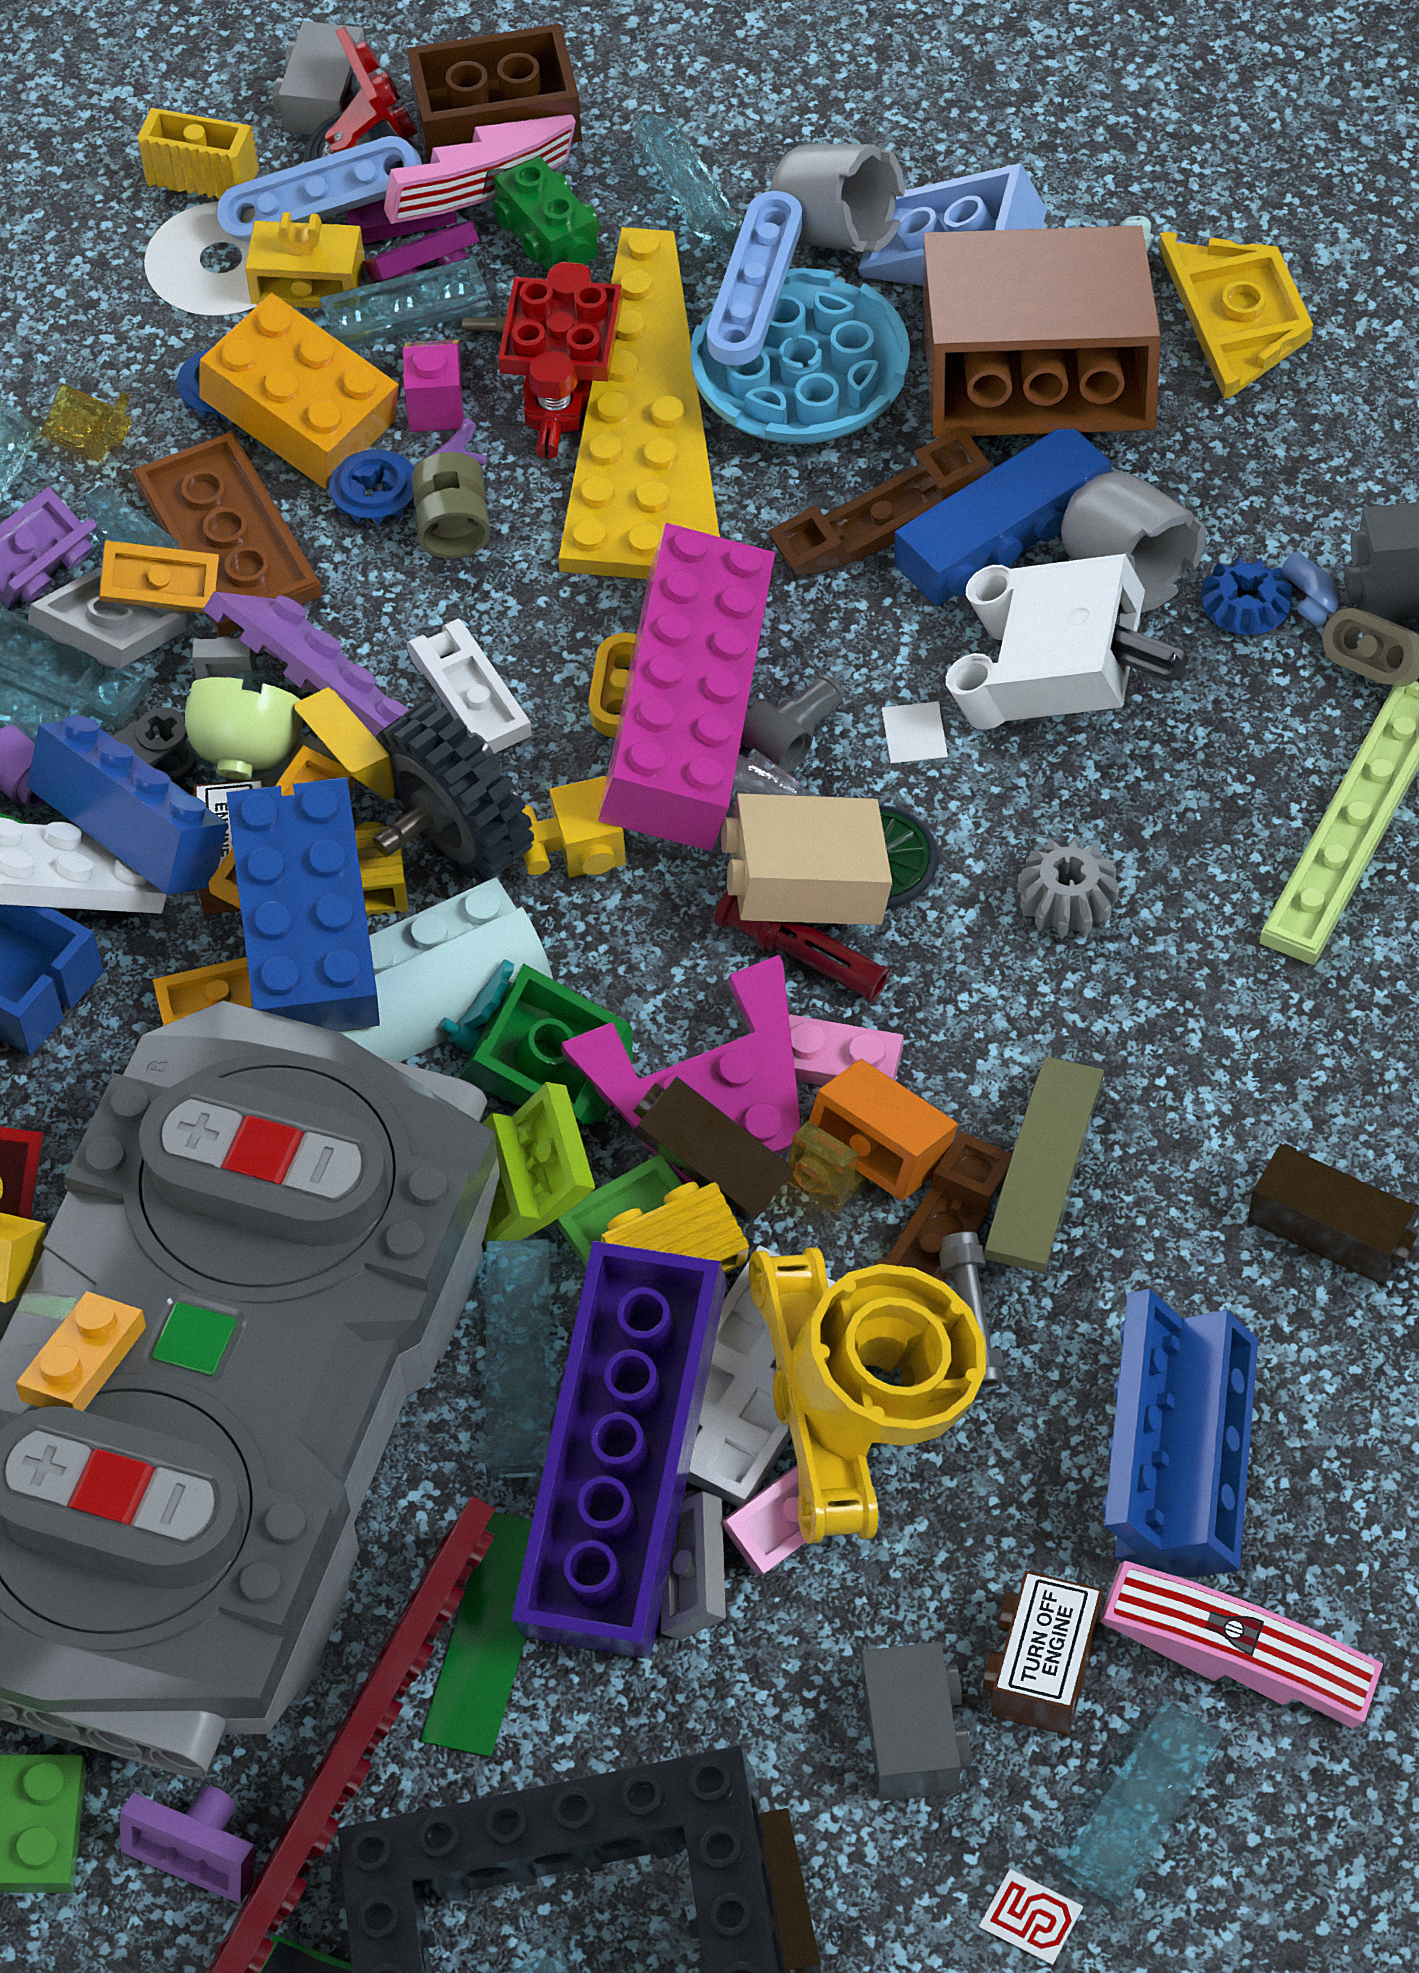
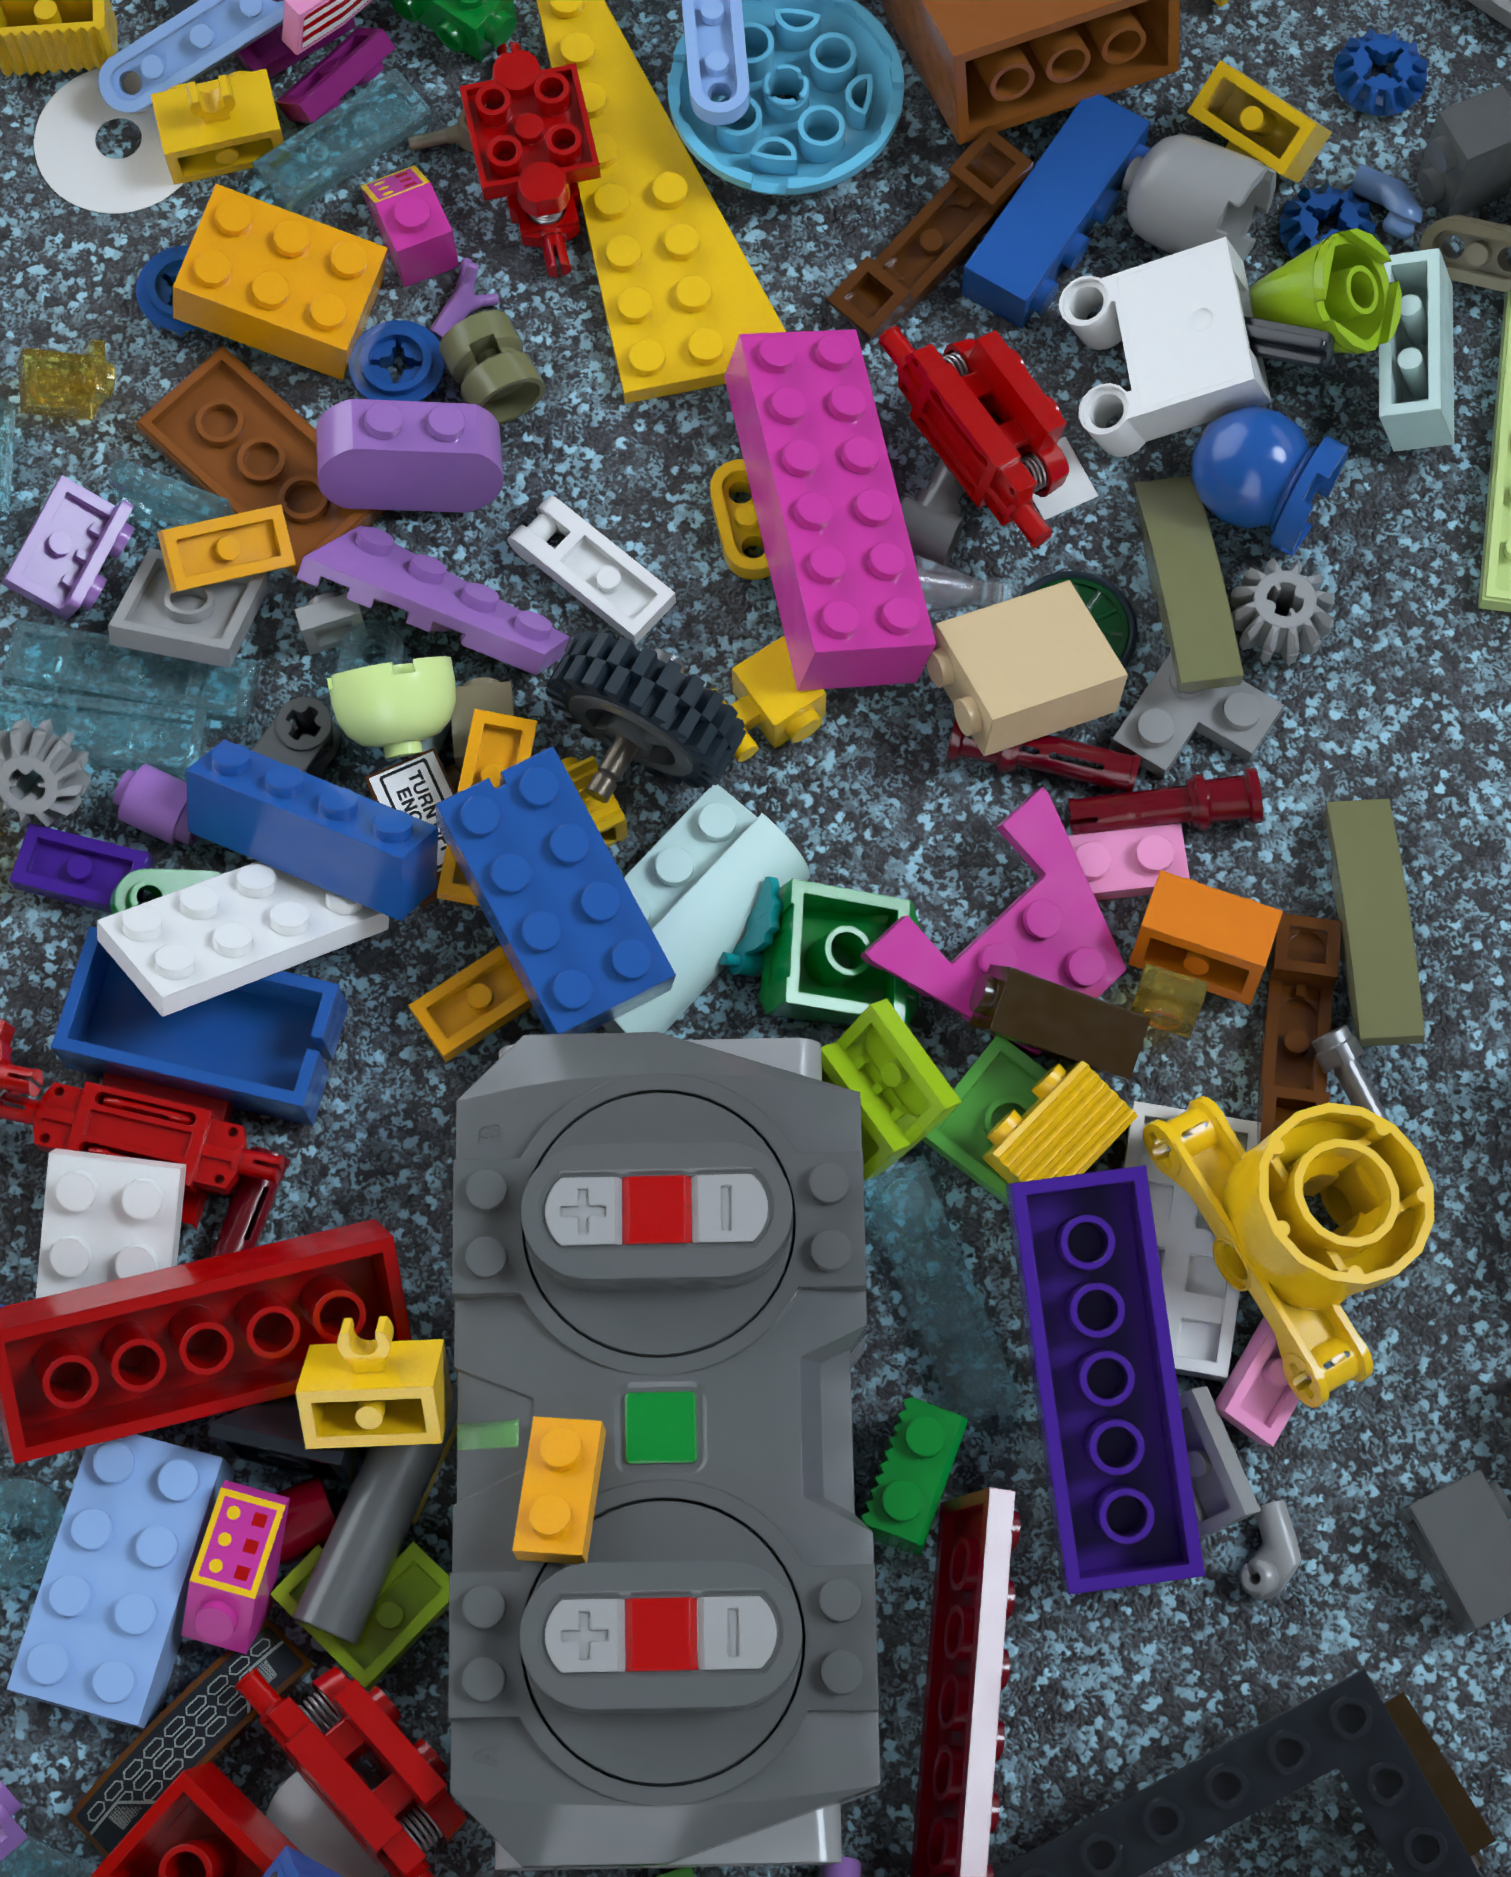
camera: 20 degrees left, 15 degrees up
(345, 548) = (409, 455): none -> medium lavender brick
(348, 740) = (516, 687): yellow slope -> none
(422, 1492) = (913, 1475): none -> green brick
(482, 1647) = (1037, 1633): green sticker -> none
(730, 1673) = (1277, 1556): none -> light grey arm
(857, 656) = (985, 423): none -> red piece
(924, 1021) = (1197, 802): none -> dark red pin
(957, 938) = (1166, 720): none -> light grey plate
(990, 842) = (1187, 584): none -> olive slope
(1095, 767) = (1260, 471): none -> blue tile
(1212, 489) = (1259, 122): none -> yellow brick
(1219, 627) = (1336, 290): none -> lime cone
(1278, 707) = (1419, 359): none -> light aqua brick
(1339, 501) = (1380, 94): none -> blue gear

